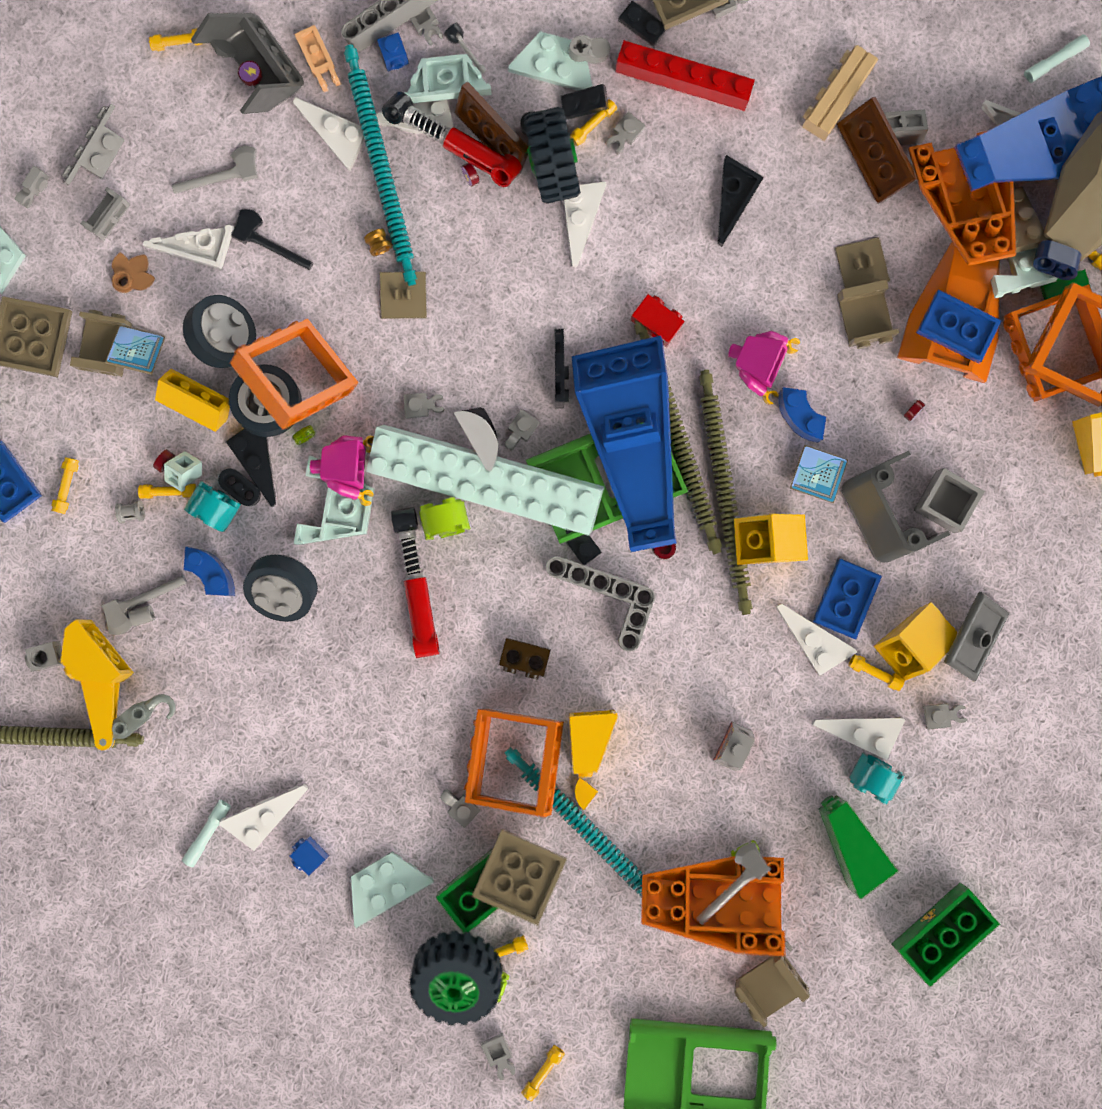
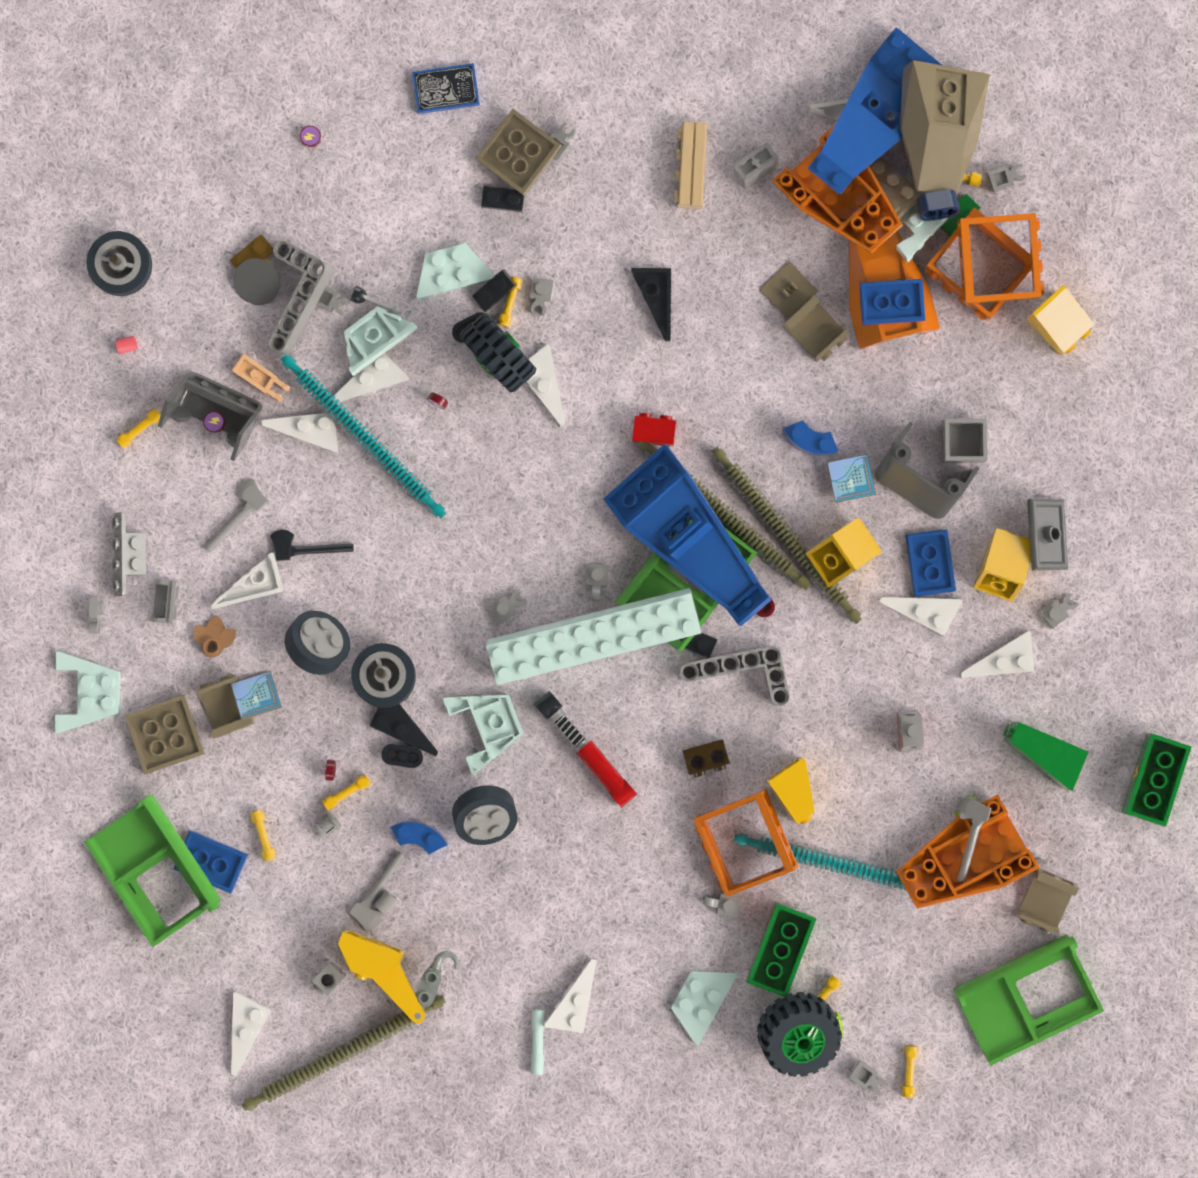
camera: 35 degrees left, 0 degrees up
(182, 470) = (351, 769): light aqua brick -> none
(192, 399) = (326, 708): yellow brick -> none
(212, 507) = (392, 783): teal brick -> none
(268, 395) = (386, 668): orange window -> none
(303, 435) = (429, 684): clear neon green tile -> none
(308, 855) = (627, 1011): blue brick -> none
(344, 466) = (477, 690): dark pink torso -> none
(377, 242) = (396, 498): pearl gold wheel -> none
(393, 52) = (319, 339): blue brick -> none
(401, 300) = (441, 532): dark tan piece -> none
(444, 519) = (580, 686): lime brick -> none
(481, 434) = (569, 602): white sticker -> none
(488, 124) = (435, 357): reddish brown tile -> none
(501, 168) = (462, 383): piece -> none
(519, 877) = (802, 927): dark tan plate -> none
(561, 371) = (602, 515): black wing -> none
(584, 793) = (814, 835): yellow tile -> none
(589, 49) = (473, 246): light grey piece -> none
(684, 75) = (561, 223): red brick -> none
(761, 360) = (754, 415): dark pink torso -> none
(876, 150) = (748, 196): reddish brown tile -> none
(876, 777) = (1032, 690): teal brick -> none
(894, 681) = (969, 608): yellow bar -> none
(914, 410) = (896, 385): dark red tile -> none
(1068, 51) = (841, 48): light aqua piece -> none

